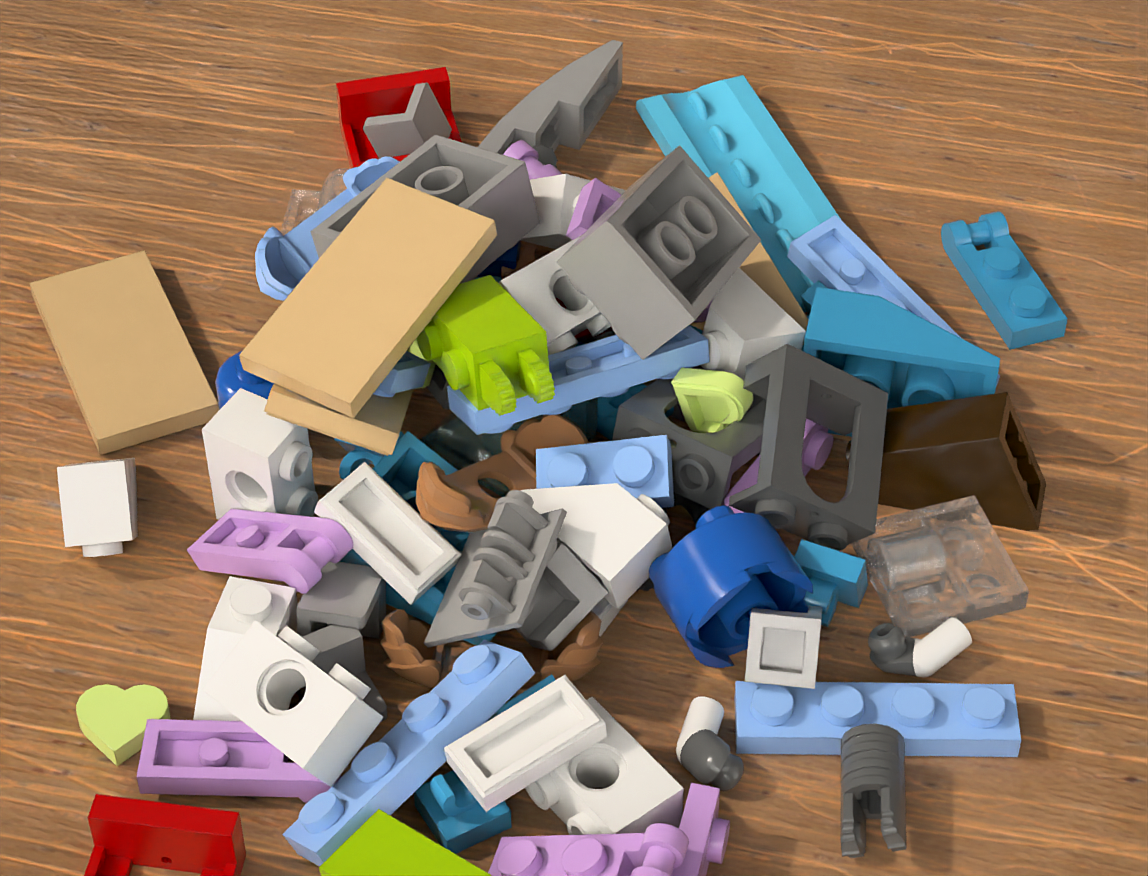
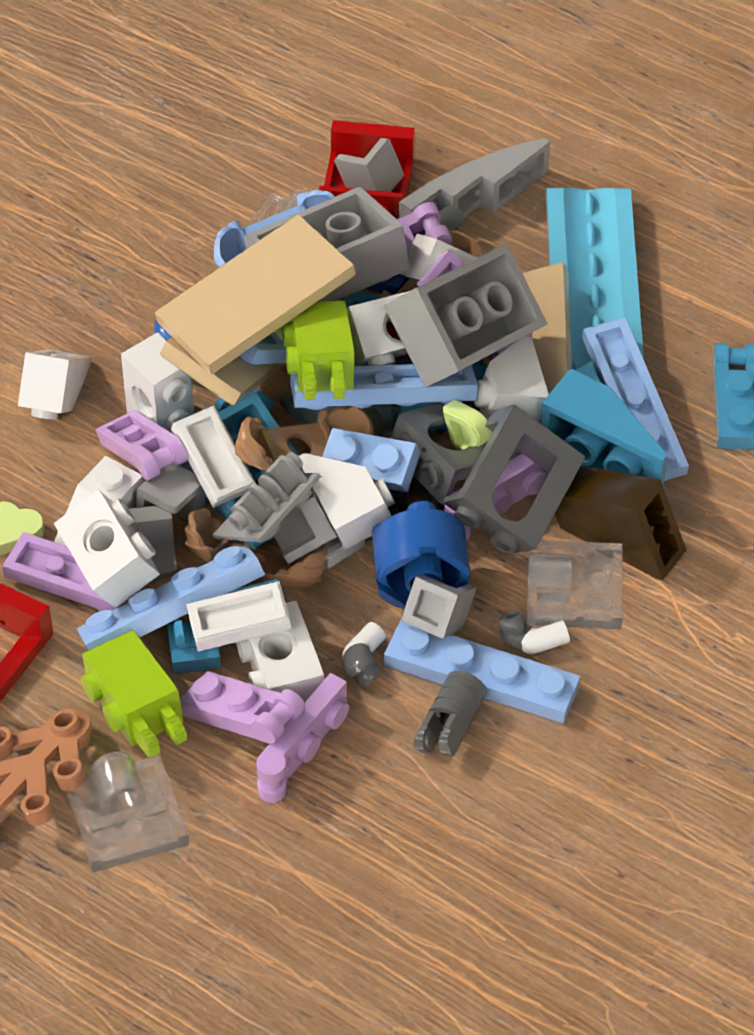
camera: 20 degrees right, 5 degrees up
(124, 352) = (113, 278): tan tile -> none
(834, 577) = (493, 572): dark azure tile -> none

